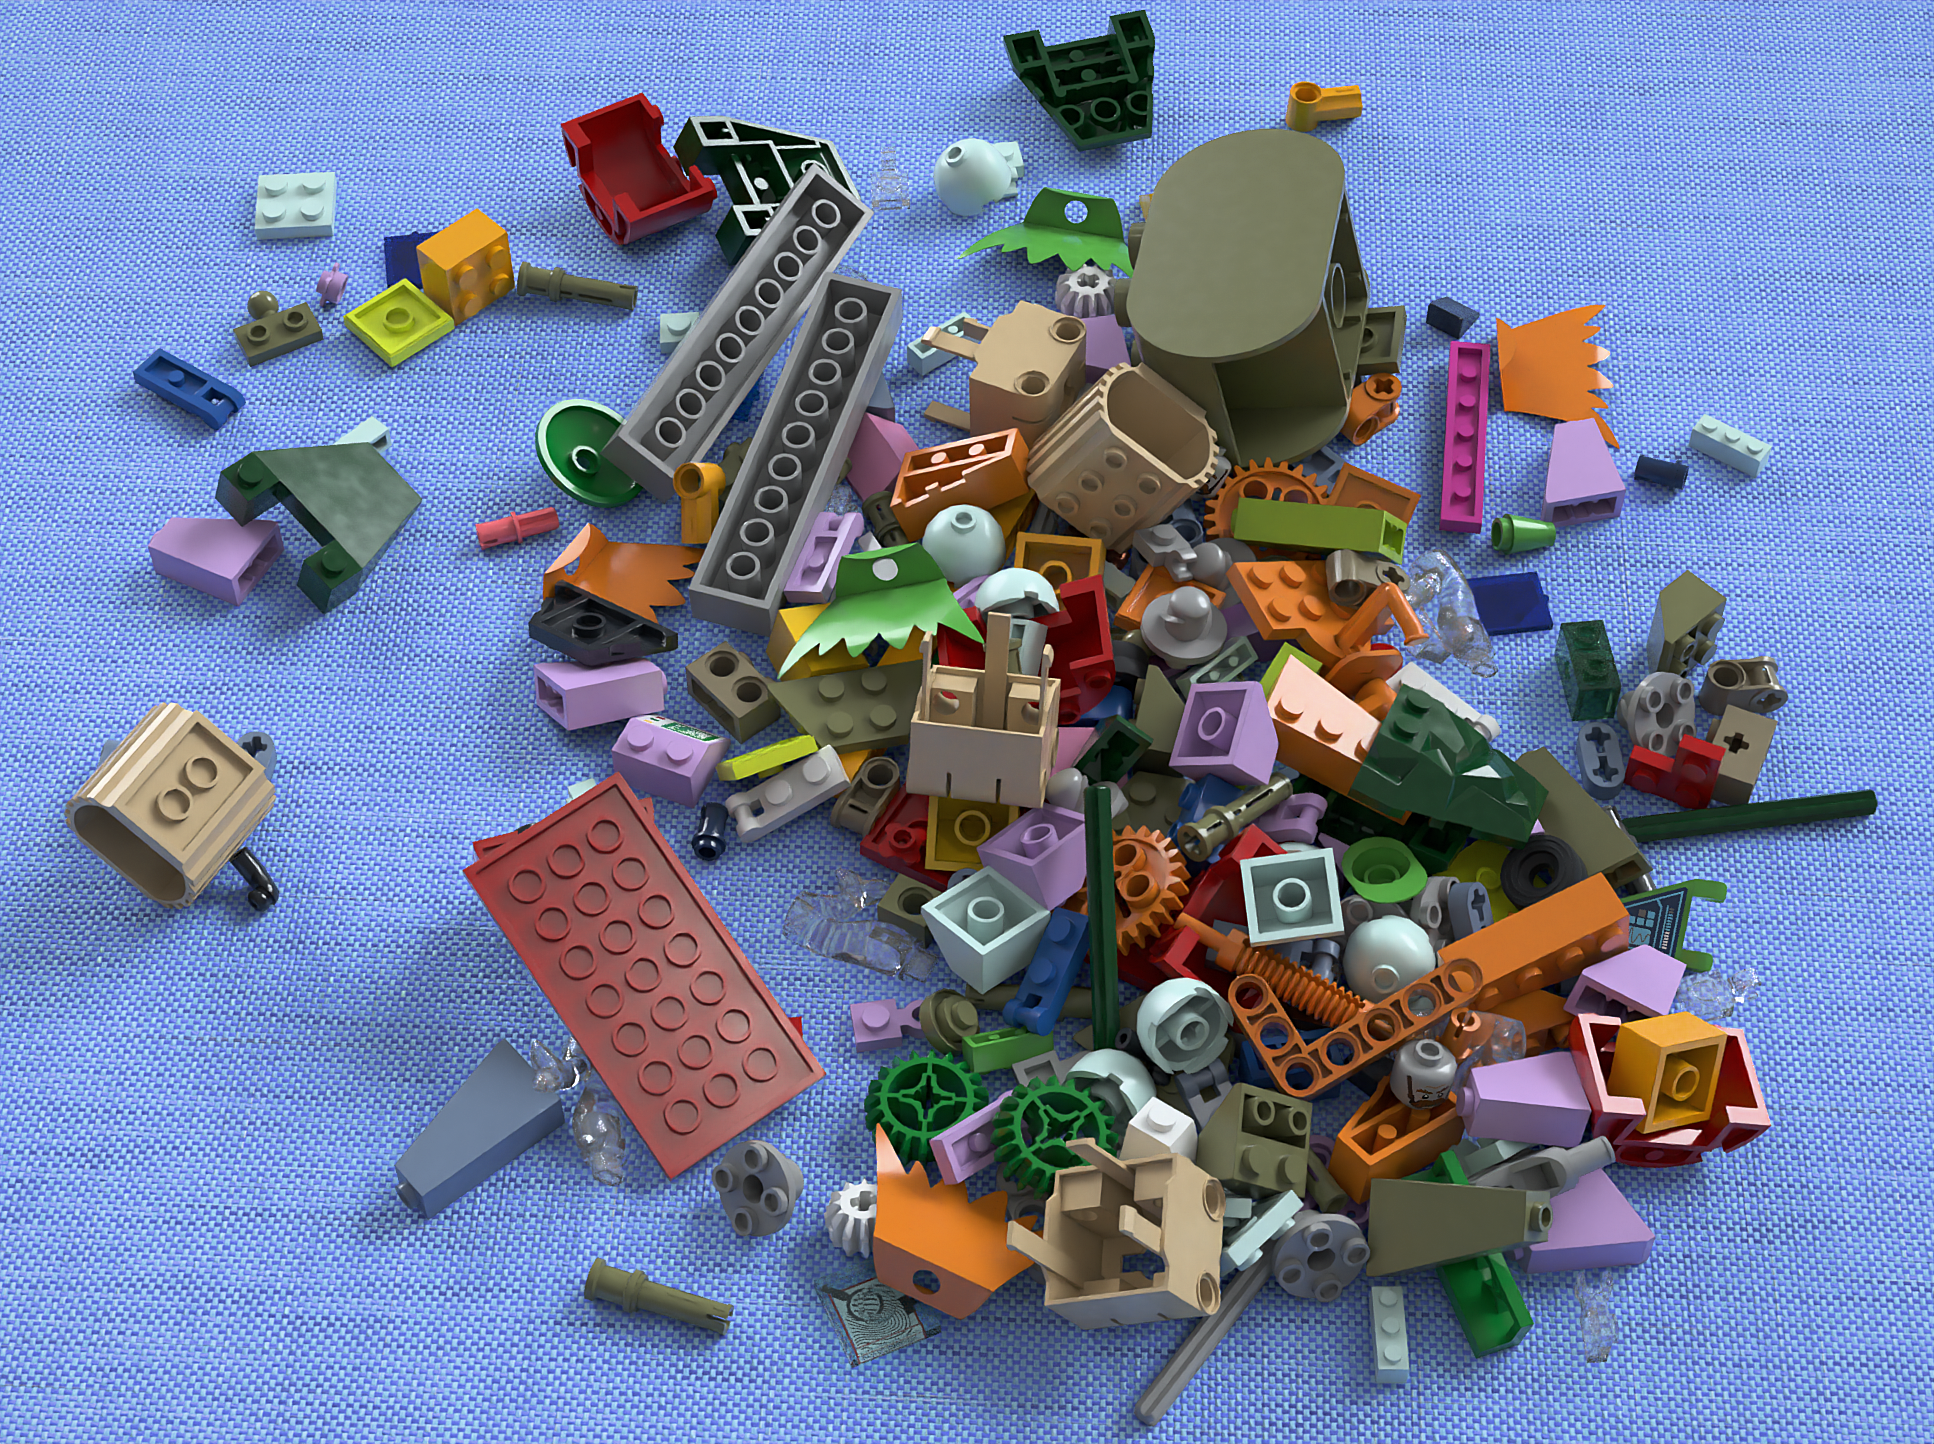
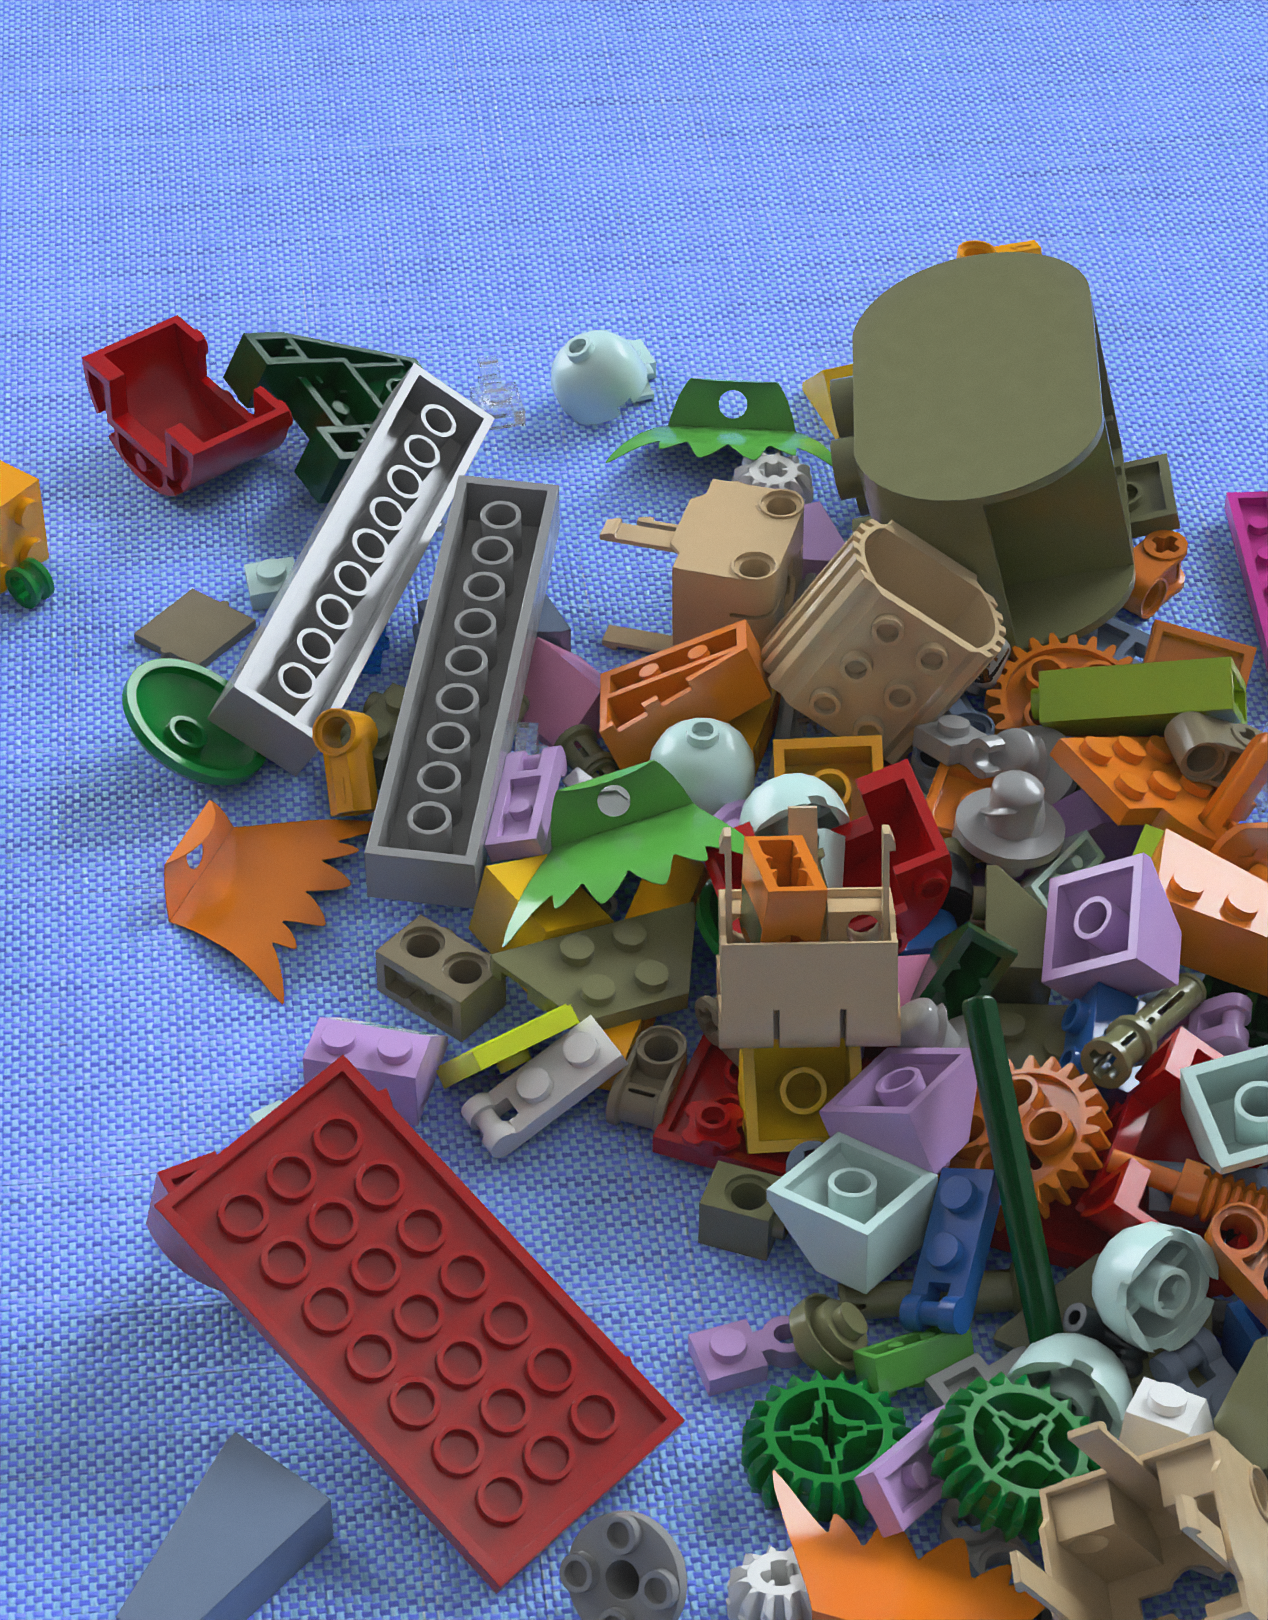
camera: 10 degrees left, 10 degrees down
(493, 312) = (29, 583): none -> green bush
(516, 527) = (111, 821): coral axle -> none
(559, 285) = (106, 545): olive pin -> none
(595, 628) = (248, 920): black wing -> none
(596, 1116) = (380, 1511): clear piece -> none
(599, 693) = (264, 993): lavender slope -> none
(613, 366) = (195, 629): none -> dark tan piece
(709, 840) = (451, 1142): dark blue pin -> none
(871, 944) = (621, 1243): clear piece -> none
(926, 358) = (602, 566): light aqua piece -> none
(962, 703) = (780, 891): none -> orange torso
(1095, 85) = (721, 272): dark green wedge -> none
(1451, 316) = (1214, 471): black slope -> none

